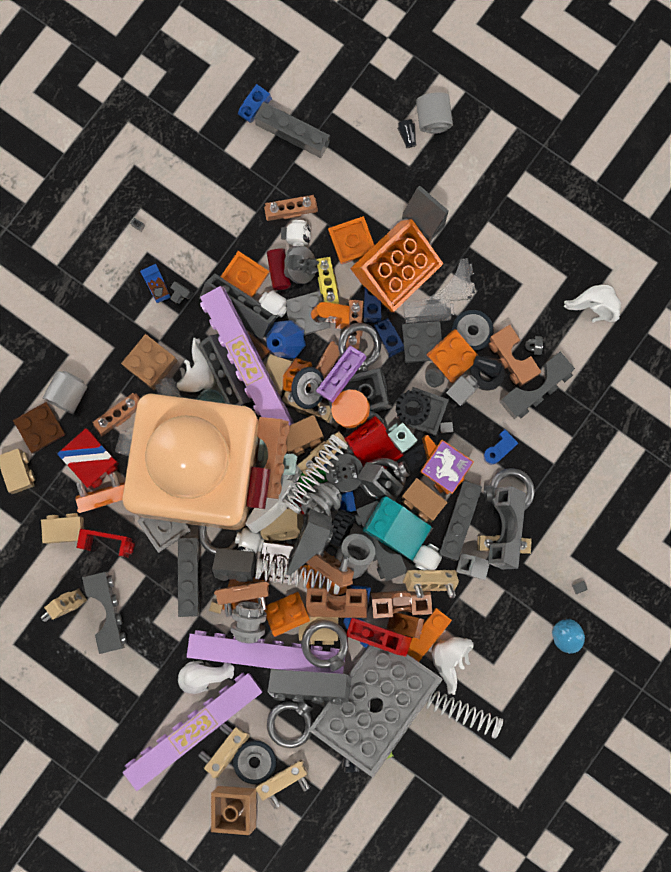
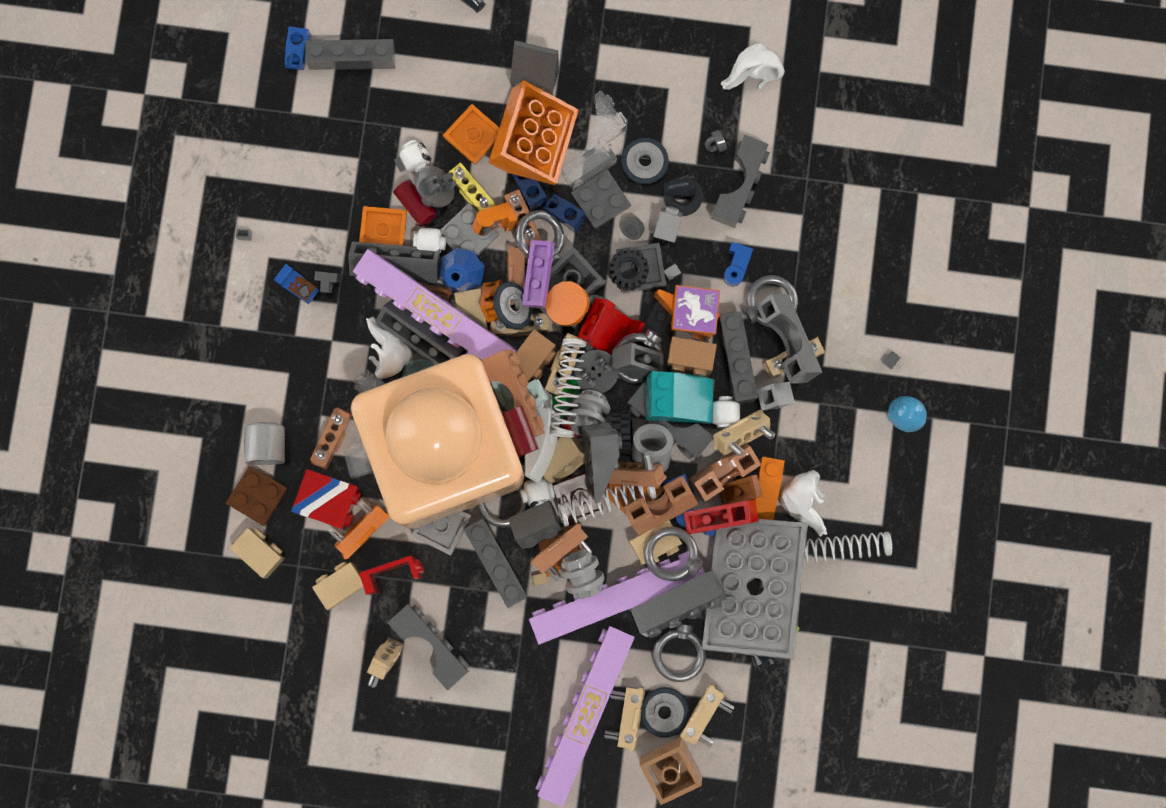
camera: 35 degrees left, 0 degrees up
(149, 361) = (334, 367): medium nougat brick -> none
(196, 677) = (559, 659): white piece -> none
(286, 614) = (615, 545): orange plate -> none
(308, 206) = (375, 146): nougat piece -> none
(347, 502) = (615, 400): blue tile -> none
(401, 437) = (633, 305): light aqua brick -> none
(452, 356) = (639, 196): orange plate -> none
(520, 371) = (715, 175): nougat arch -> none

